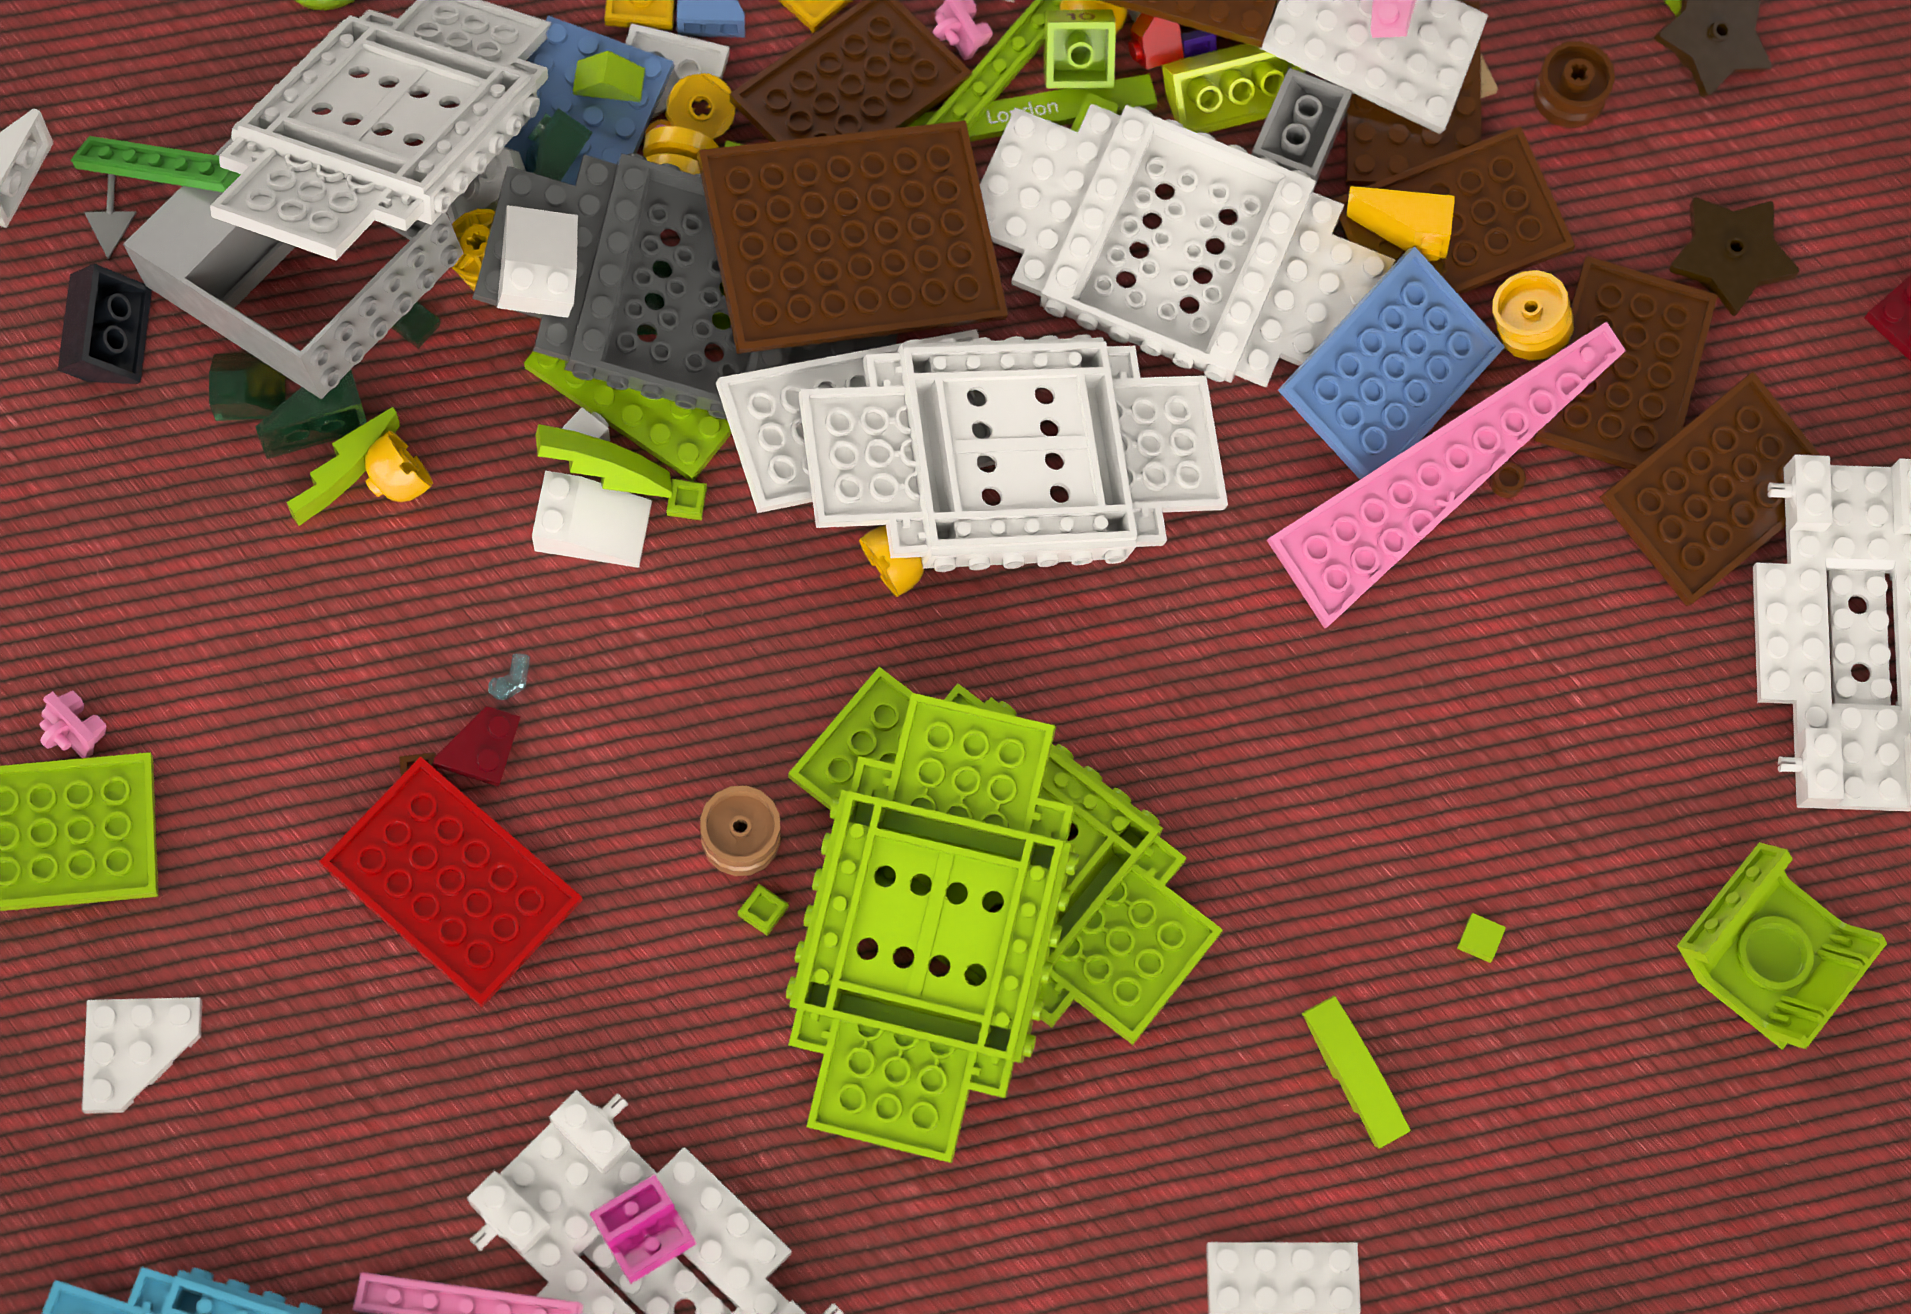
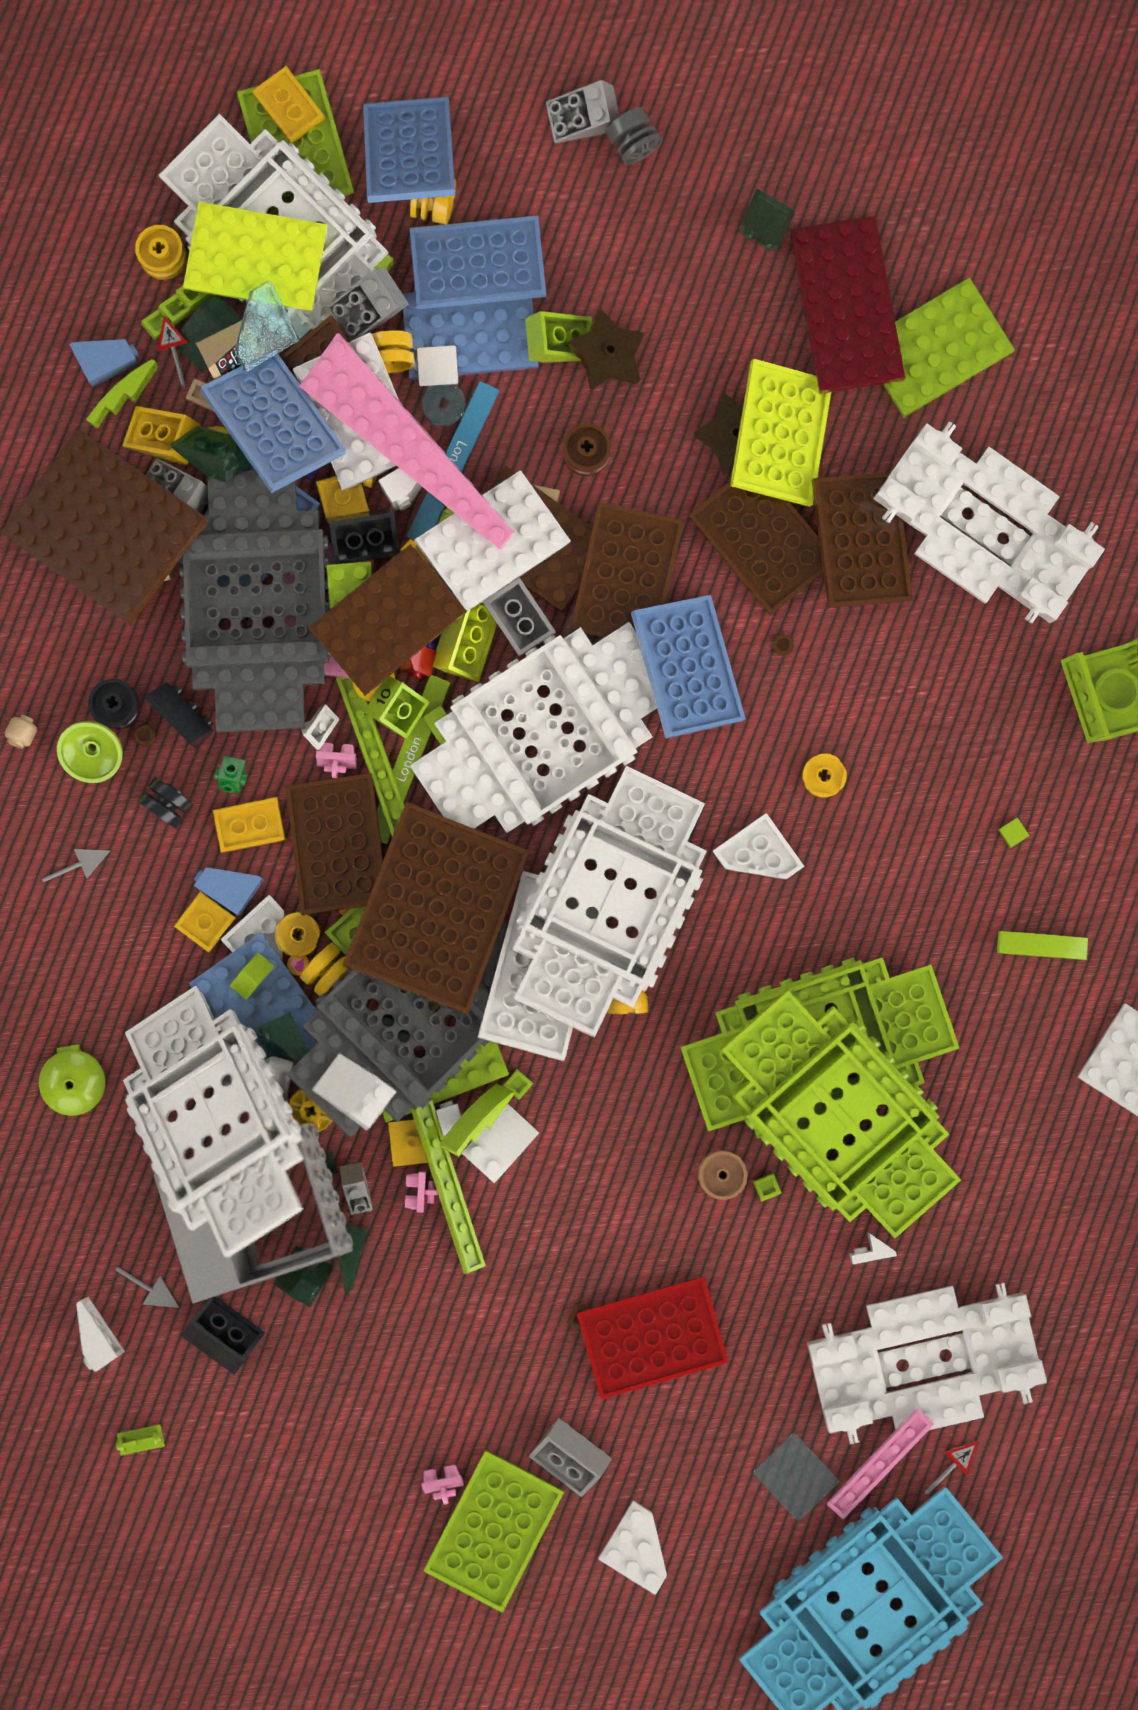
camera: 50 degrees left, 15 degrees up
(153, 164) = (148, 1256): bright green tile -> none
(211, 872) = (570, 1457): none -> light grey slope
(343, 470) = (383, 1246): lime slope -> none
(374, 1206) = (796, 1477): none -> clear light blue piece
(394, 470) = (408, 1229): yellow cylinder -> none
(410, 375) = (356, 1188): none -> light grey slope
(460, 463) = (418, 1180): none -> bright pink hips
(481, 747) = (589, 1277): dark red wing -> none
(485, 489) = (448, 1188): none -> lime tile
(514, 682) = (563, 1239): clear light blue arm -> none
(516, 409) = (406, 1143): none -> yellow plate
(642, 1229) = (898, 1354): dark pink slope -> none
(772, 1113) = (878, 1251): none -> white slope
(1214, 615) = (759, 851): none -> white plate
(1365, 653) = (834, 769): none -> yellow plate
(1380, 518) = (764, 731): bright pink wing -> none
(1405, 218) = (622, 598): yellow slope -> none
(1533, 315) = (693, 569): yellow wheel -> none
(1776, 299) = (780, 433): none -> neon yellow plate

